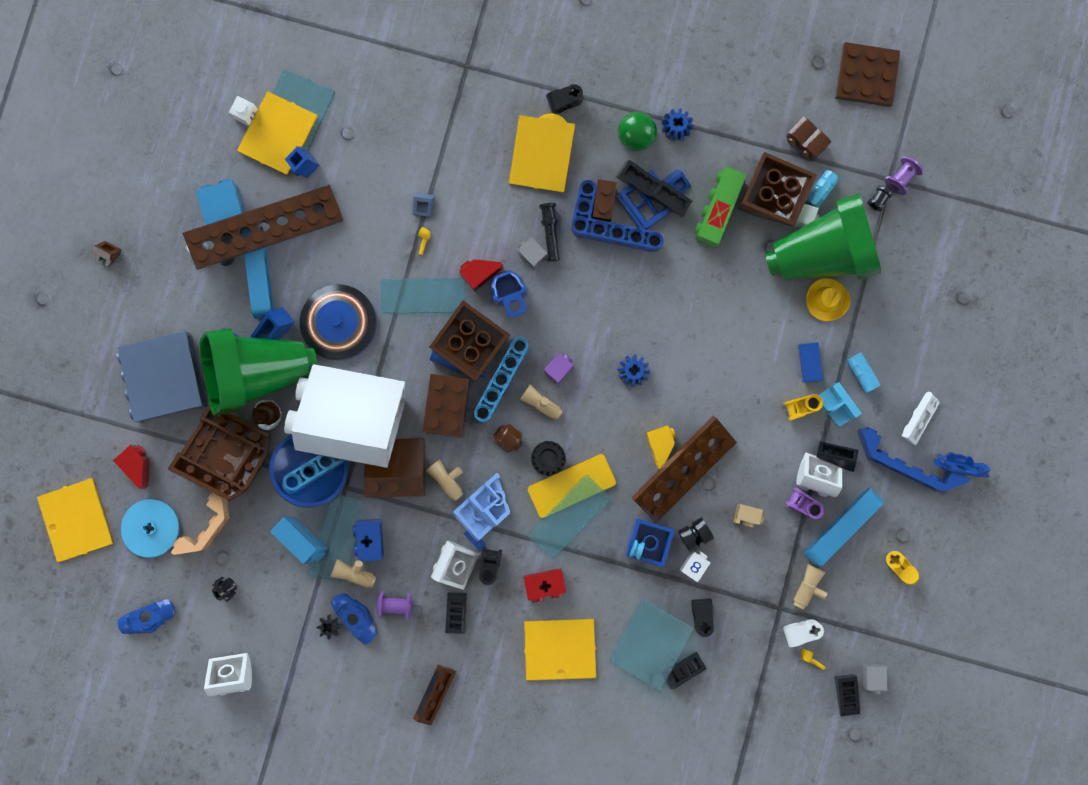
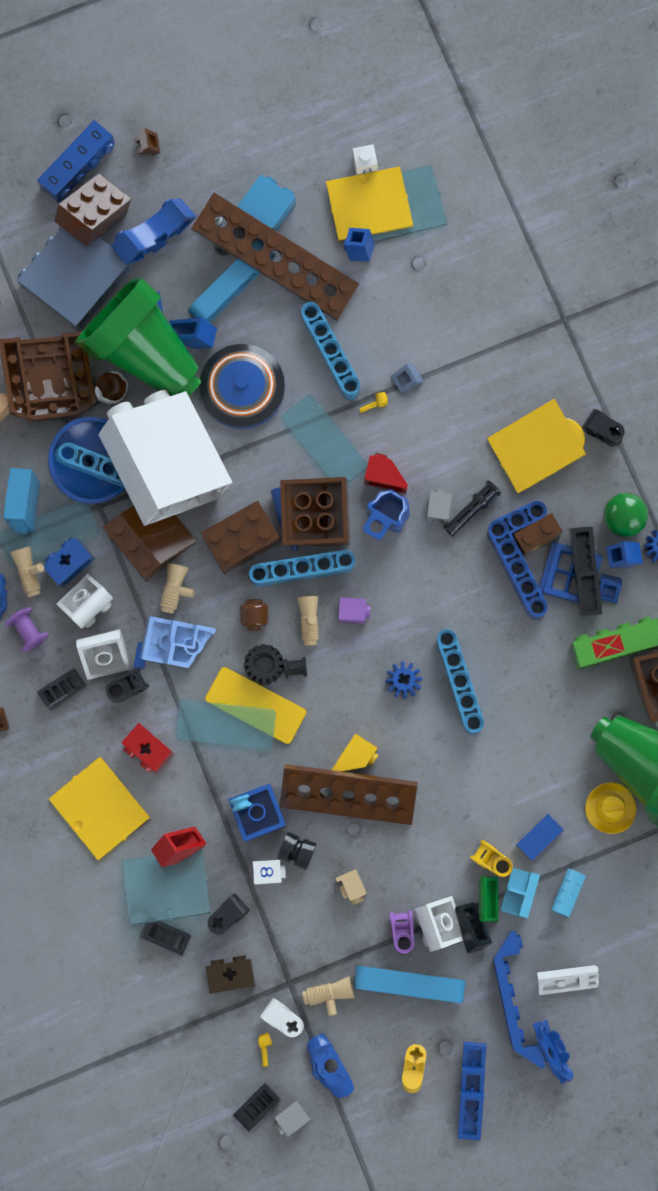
camera: 55 degrees right, 5 degrees down
(79, 313) = (76, 161): none -> blue brick
(125, 329) = (92, 210): none -> brick
(177, 301) = (153, 233): none -> blue brick
(355, 235) = (327, 341): none -> dark azure beam
(407, 549) = (85, 601): none -> white brick
(567, 438) = (297, 671): none -> black bush
(630, 615) = (177, 846): none -> red slope
(664, 154) = (624, 555): none -> blue brick
(674, 332) = (459, 671): none -> dark azure beam
(746, 656) = (218, 982): none -> dark brown brick
(827, 429) = (488, 899): none -> green tile
(843, 623) = (337, 1082): none -> blue piece
(946, 540) = (472, 1091): none -> blue slope

